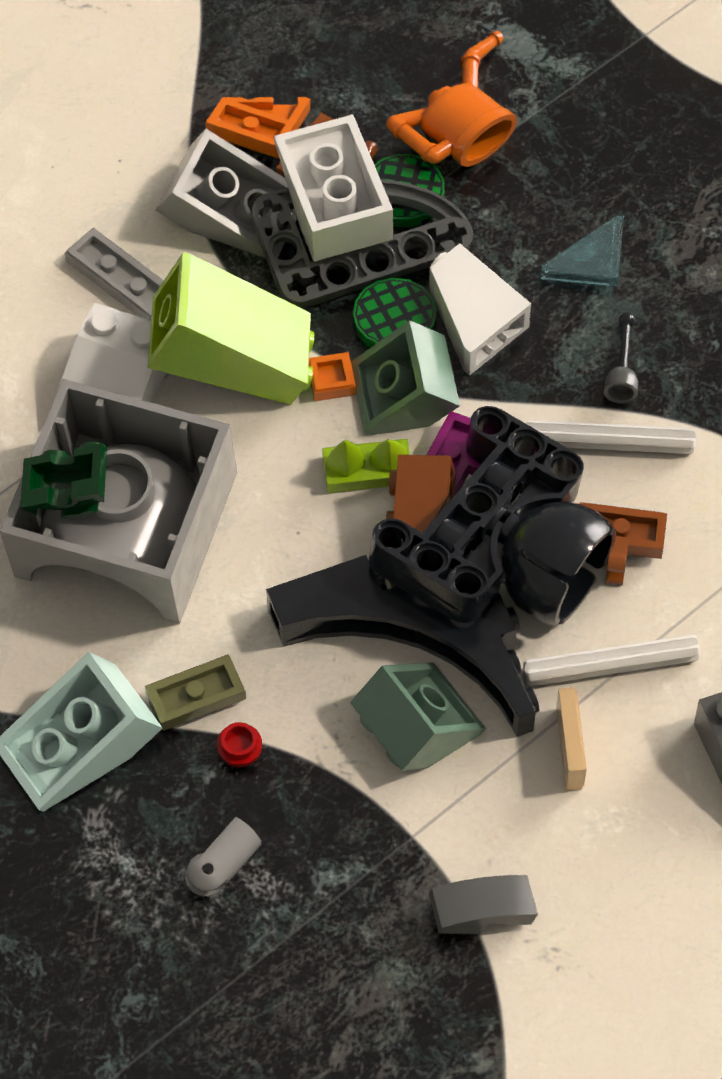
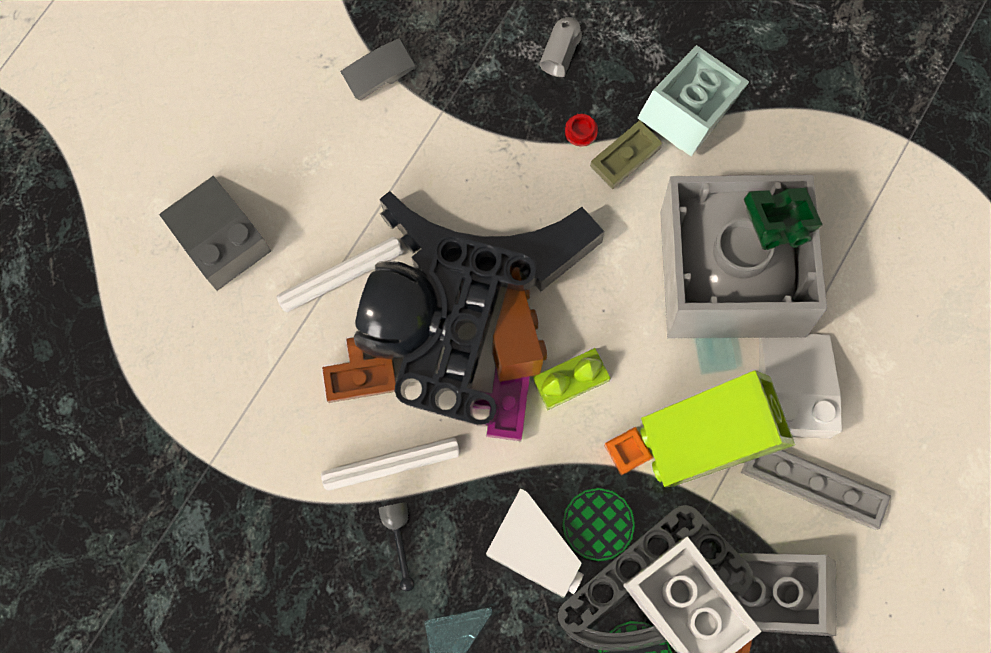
camera: 165 degrees right, 15 degrees up
(405, 381) = (565, 456): sand green slope -> none
(415, 714) = (463, 184): sand green slope -> none
(571, 738) = (351, 199): tan tile -> none

